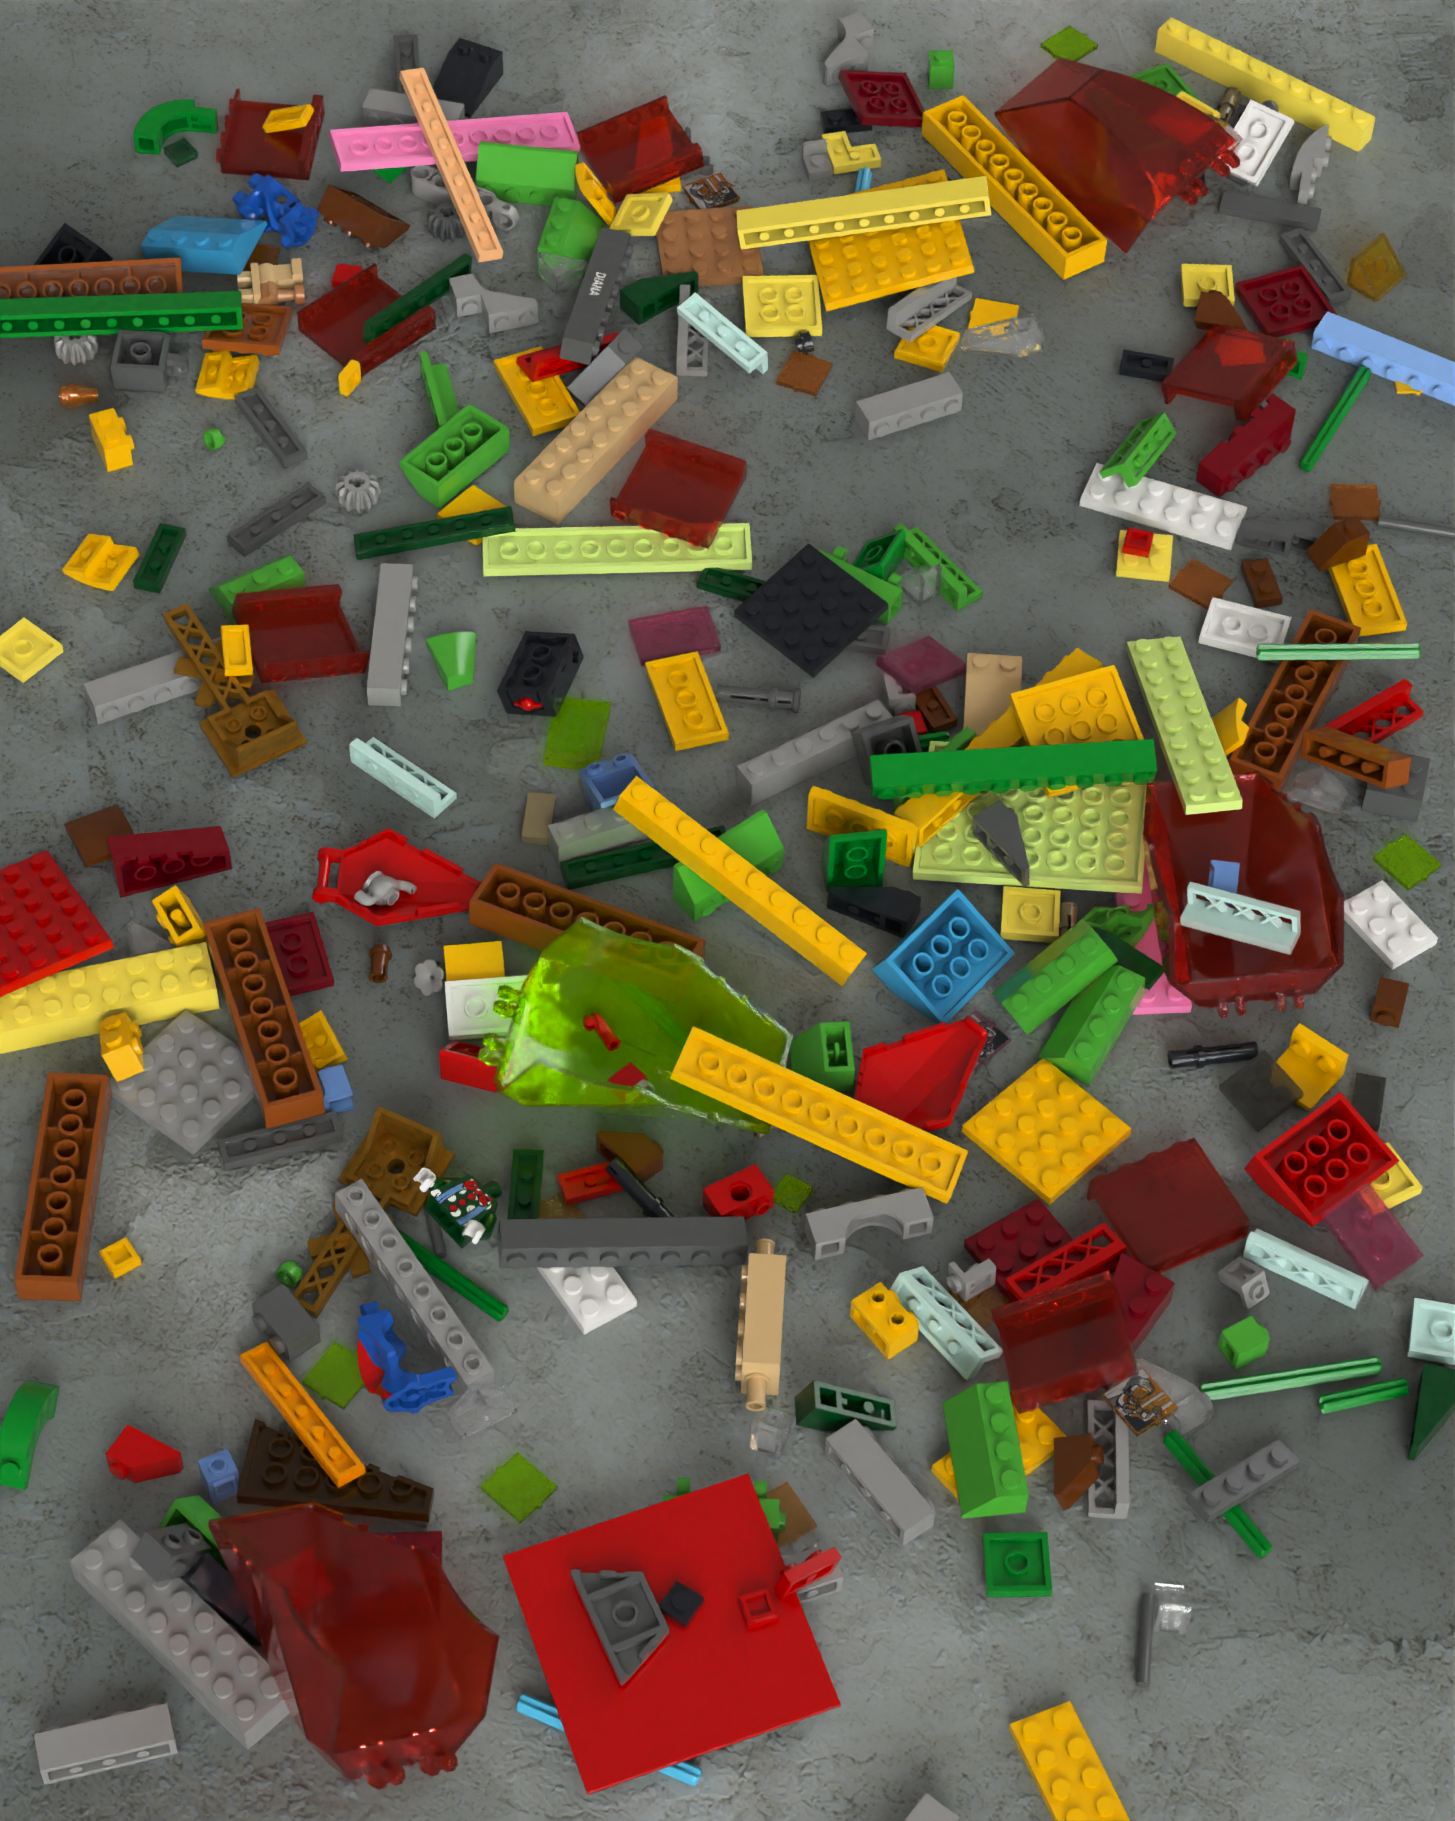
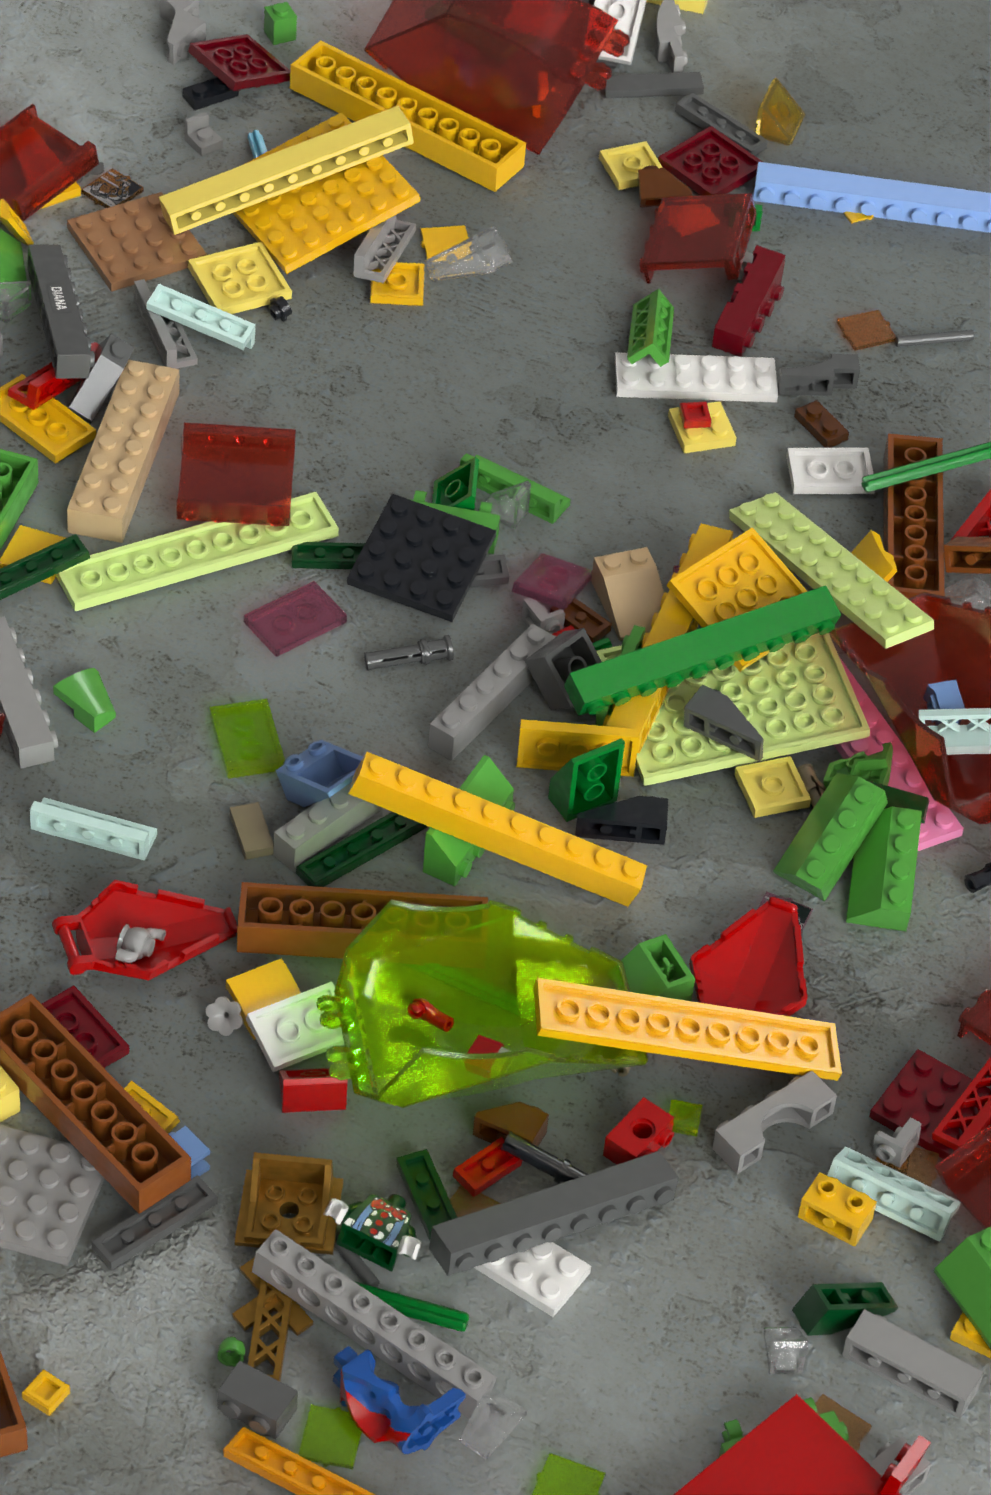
camera: 25 degrees left, 5 degrees down
(380, 956) = (162, 1009): reddish brown pin -> none
(540, 673) = (188, 688): black piece -> none
(642, 213) = (59, 223): light yellow plate -> none
(655, 295) = (110, 298): dark green slope -> none
(686, 701) = (341, 677): yellow plate -> none
(760, 1324) = (730, 1249): tan brick -> none
(804, 373) = (292, 338): clear orange piece -> none
(848, 158) = (233, 126): light yellow plate -> none
(908, 406) = (411, 343): light grey brick -> none
(944, 959) = (714, 851): dark azure slope -> none
(1046, 1130) = (890, 984): yellow plate -> none
(1145, 365) = (614, 252): black plate -> none
(1200, 583) = (765, 440): clear orange piece -> none
(1334, 419) = (810, 259): green axle -> none
(1339, 544) = (881, 368): reddish brown slope -> none
(1368, 594) = (919, 404): yellow plate -> none

